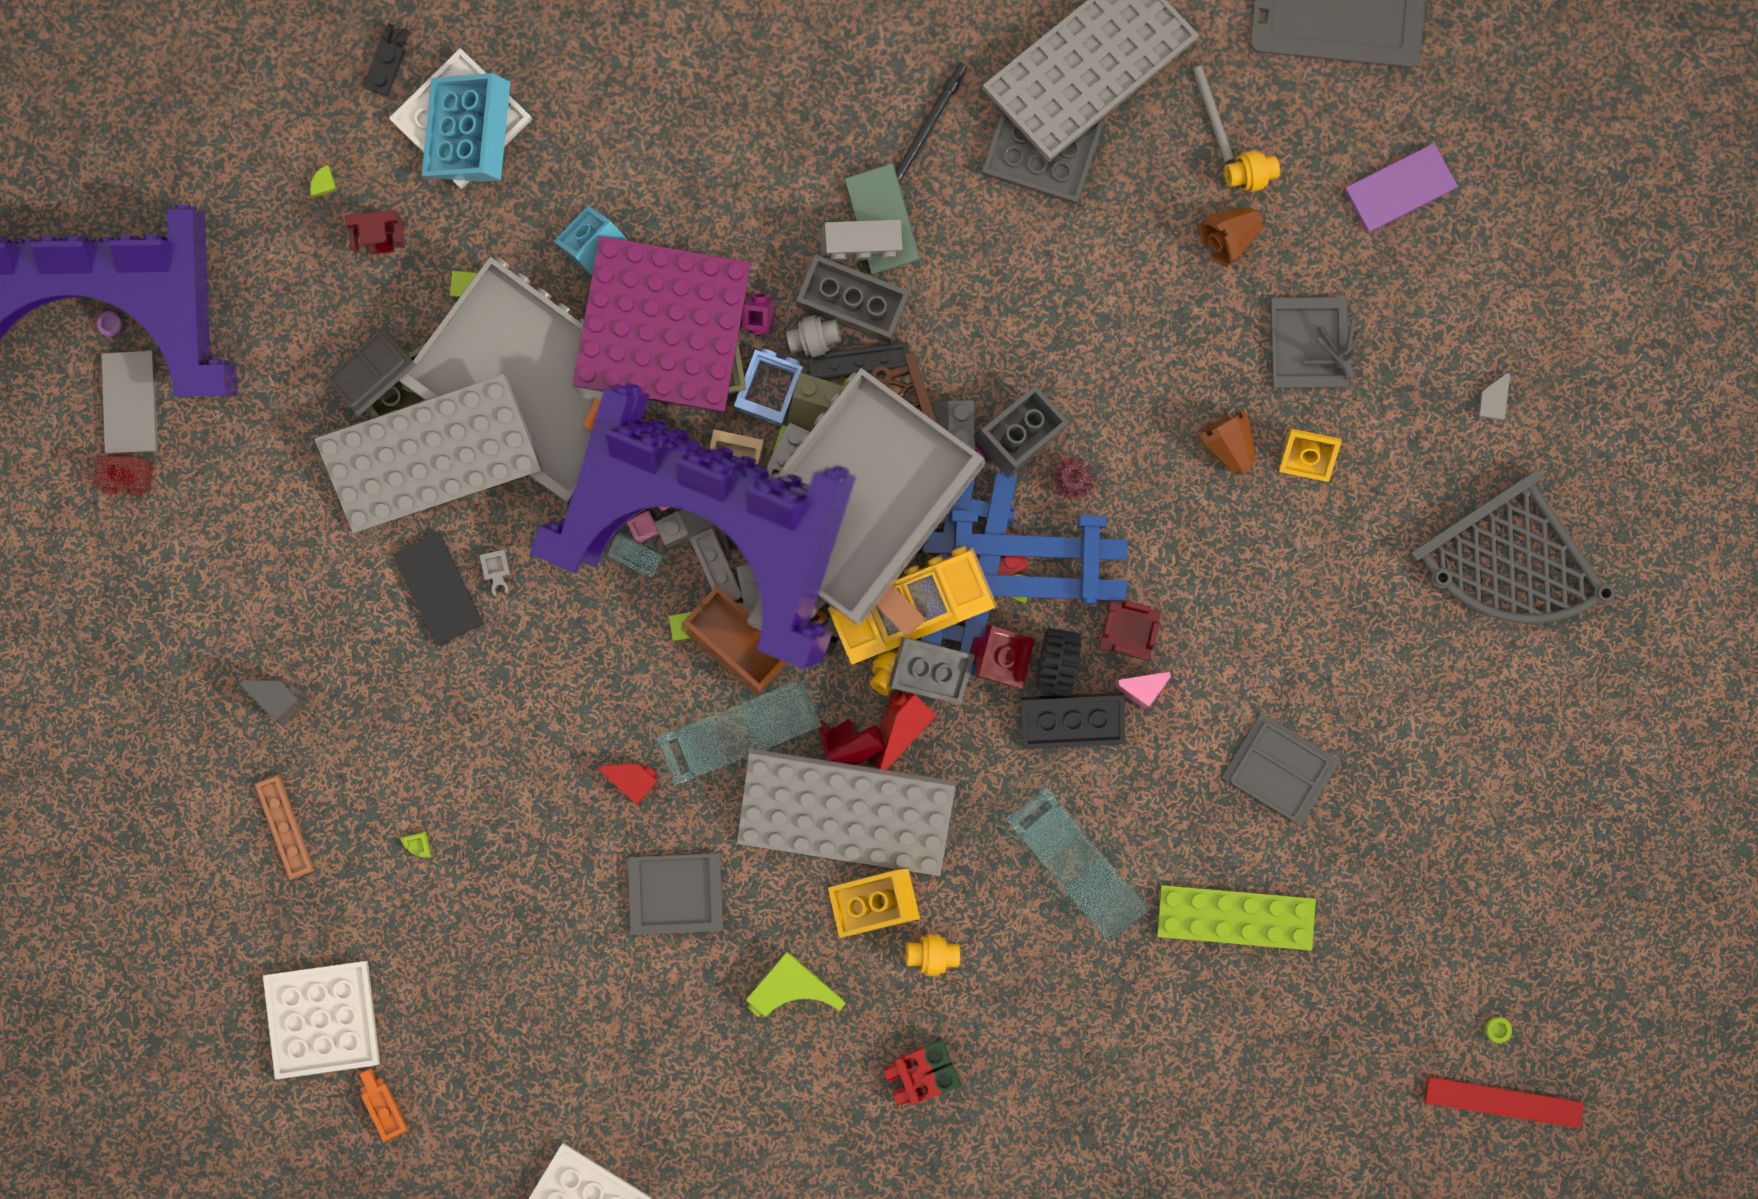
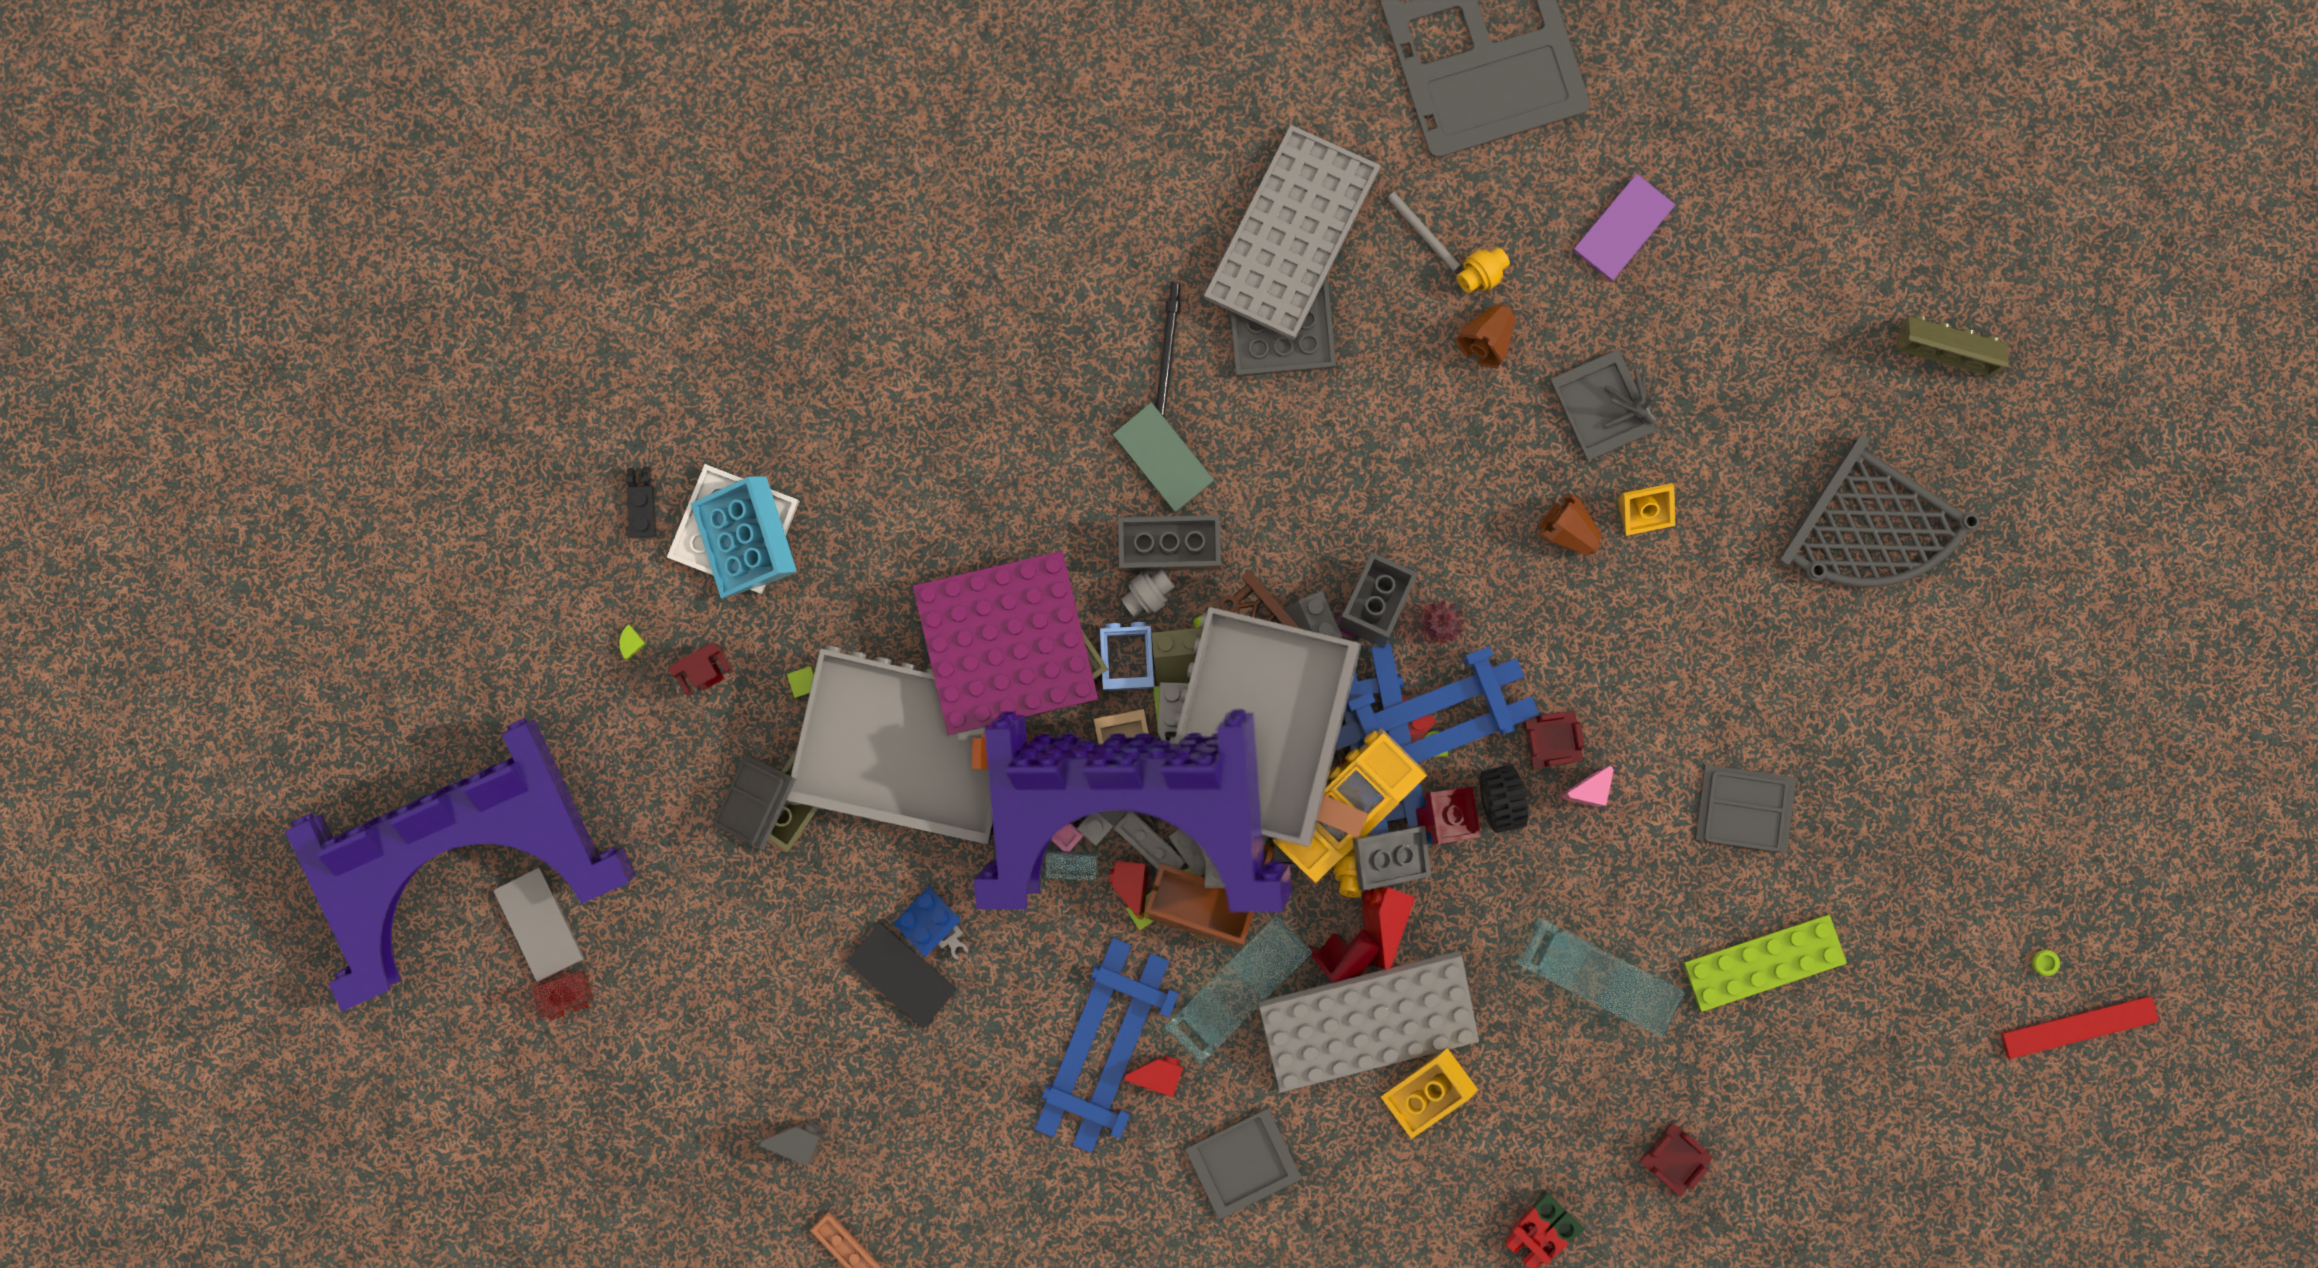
camera: 20 degrees left, 0 degrees up
(110, 324) = (488, 859): medium lavender tile -> none
(417, 844) = (985, 1221): lime tile -> none
(429, 453) = (841, 854): light grey plate -> none
(481, 549) = (927, 921): none -> blue plate
(562, 789) = (1144, 994): none -> blue fence
(582, 237) = (895, 590): medium azure slope -> none
(683, 594) = (1131, 884): none -> red slope
(758, 313) = (1088, 593): magenta brick -> none
(790, 982) = (1385, 1199): lime arch -> none
(846, 362) = (1198, 597): black tile -> none
(861, 240) = (1153, 486): light grey wedge -> none
(932, 955) = (1504, 1118): yellow piece -> none
(1073, 720) = (1539, 846): black plate -> none
(1075, 1062) = (1677, 1160): none -> dark red panel
(1494, 399) = (1792, 385): light grey tile -> none
(1658, 424) = (1952, 346): none -> olive slope

